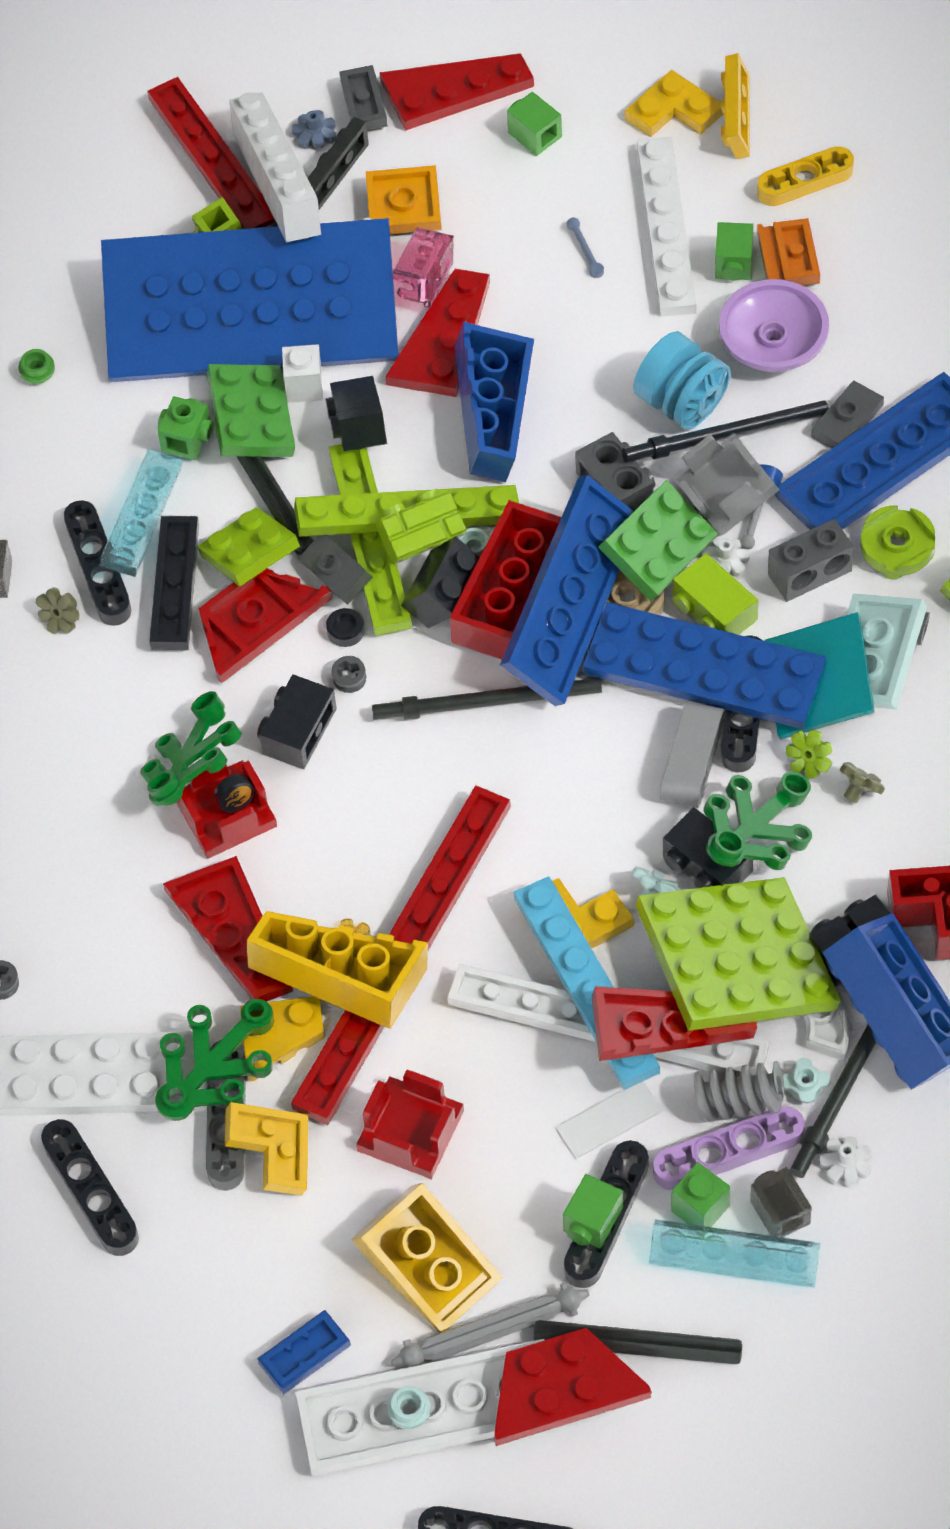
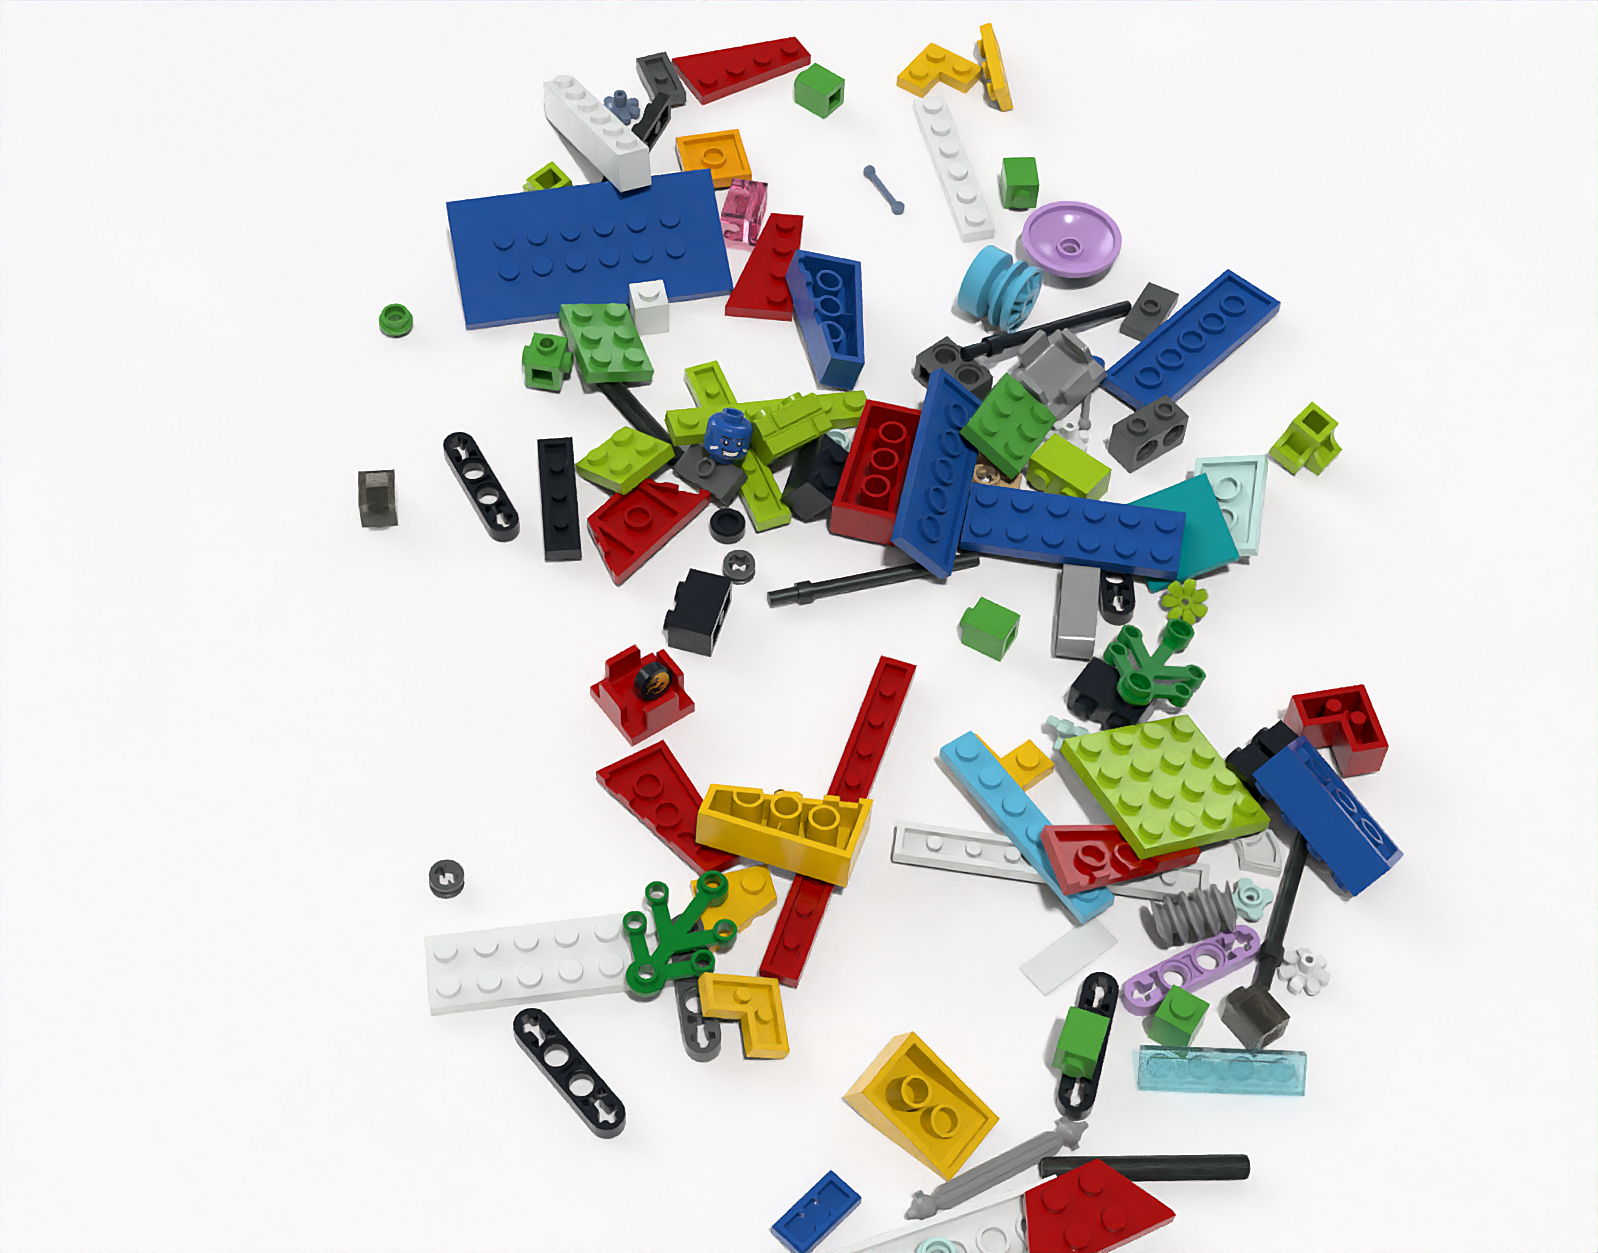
camera: 15 degrees left, 5 degrees down
(58, 610) = (451, 531): olive plant -> none
(141, 513) = (518, 438): clear light blue plate -> none
(165, 785) = (591, 677): green plant -> none
(210, 153) = (527, 128): red plate -> none
(353, 531) = (728, 436): none -> blue head
(356, 413) = (707, 337): black brick -> none
(409, 1123) = (878, 977): red panel -> none
(595, 765) = (989, 628): none -> bright green brick
(789, 251) = (1067, 179): orange plate -> none
(796, 188) = (1048, 129): yellow beam -> none
(860, 782) = (1237, 623): olive plant -> none
(895, 559) = (1216, 428): lime plate -> none

